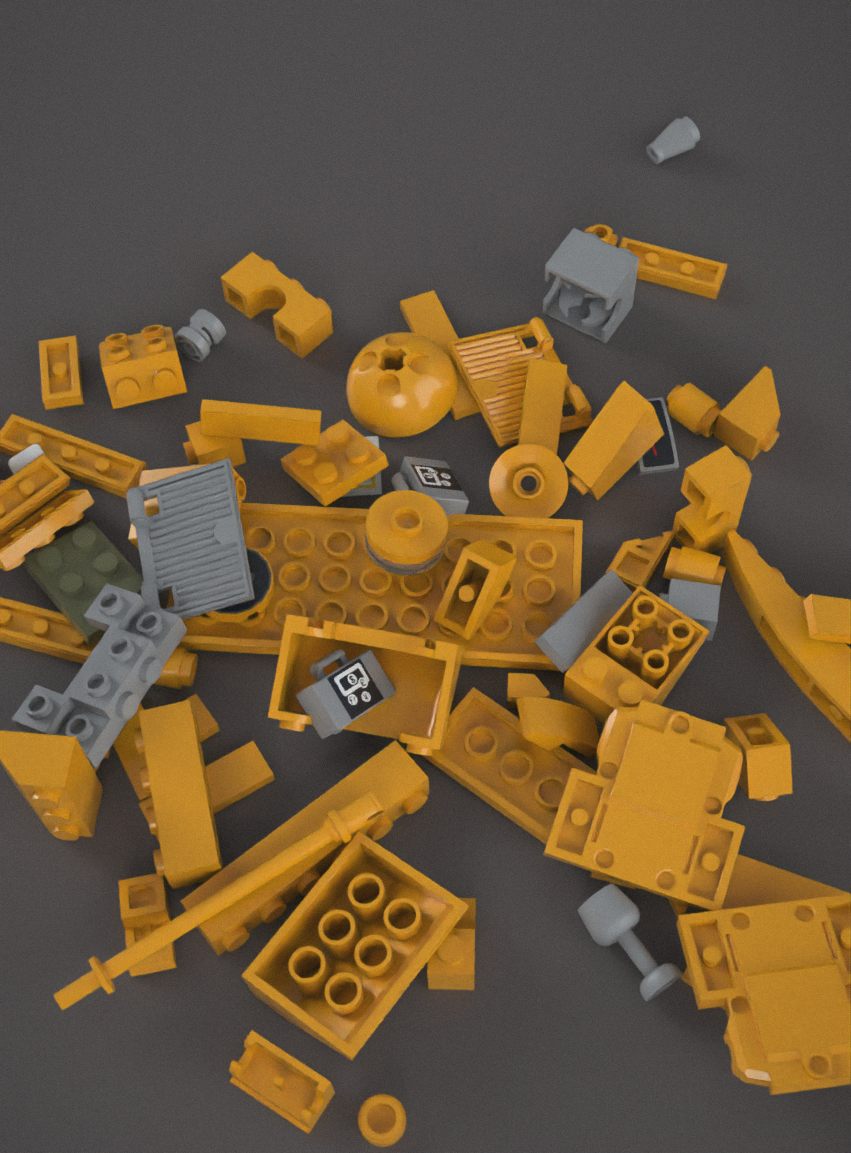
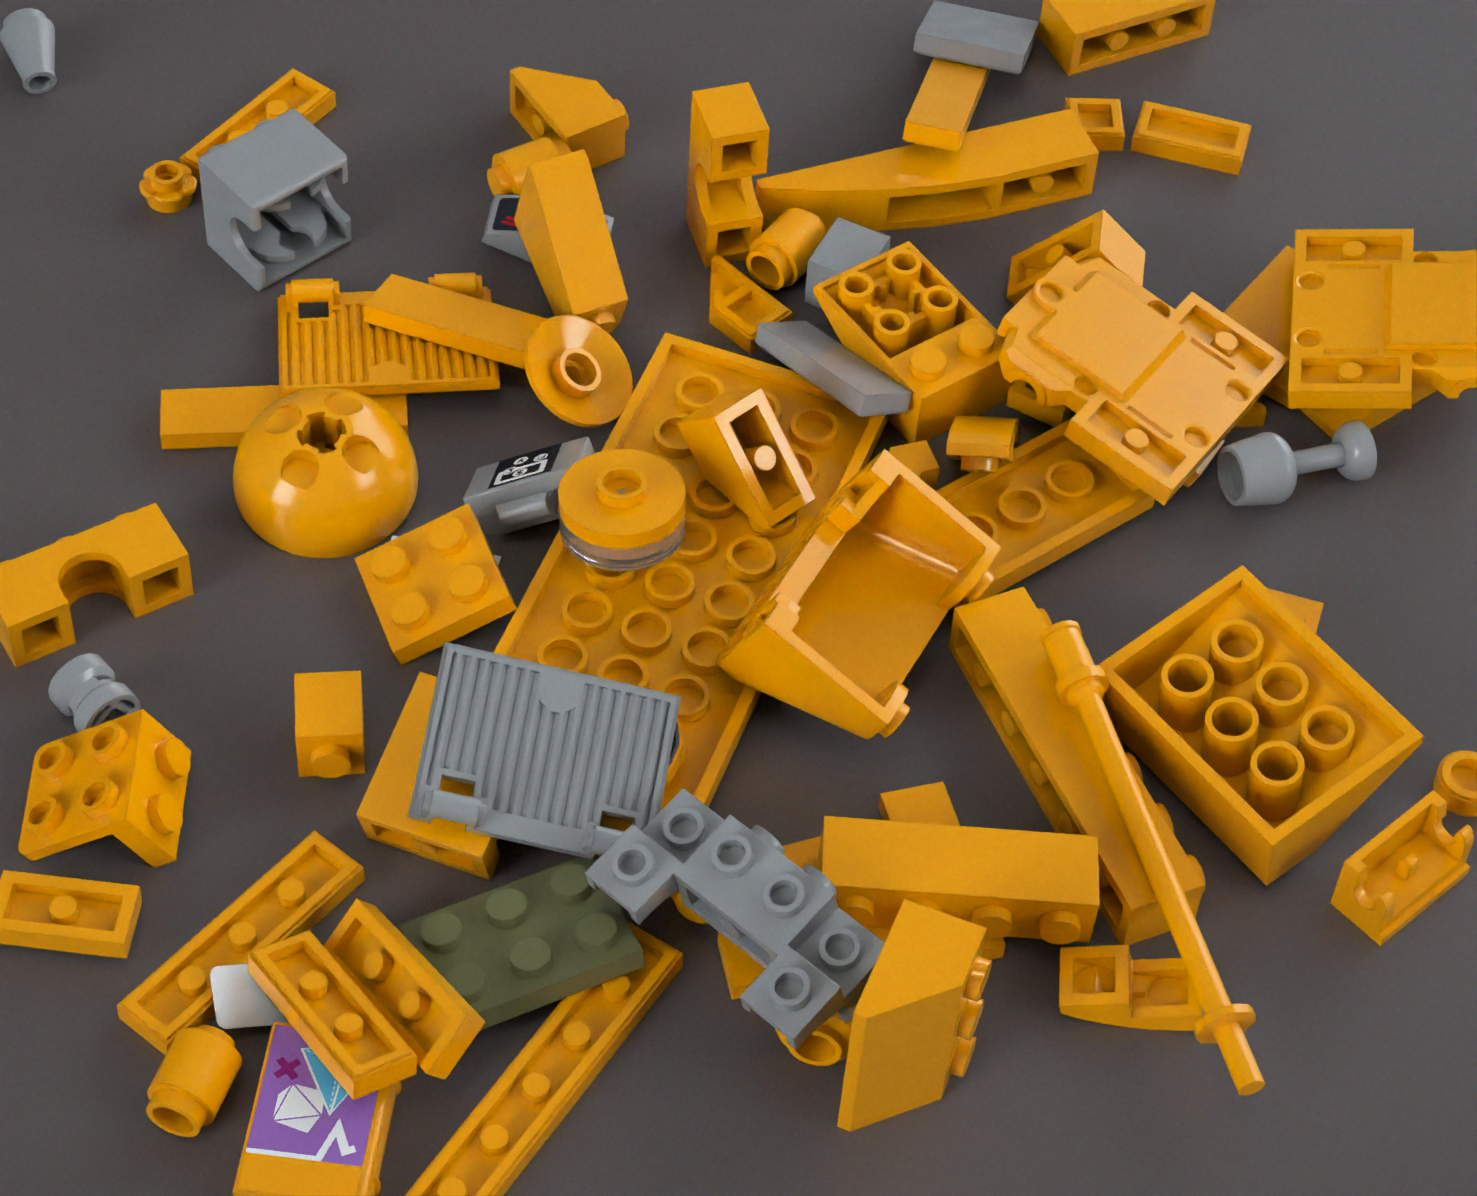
camera: 80 degrees left, 10 degrees down
(260, 422) = (354, 623): light orange tile -> none
(344, 693) = (868, 639): light grey piece -> none

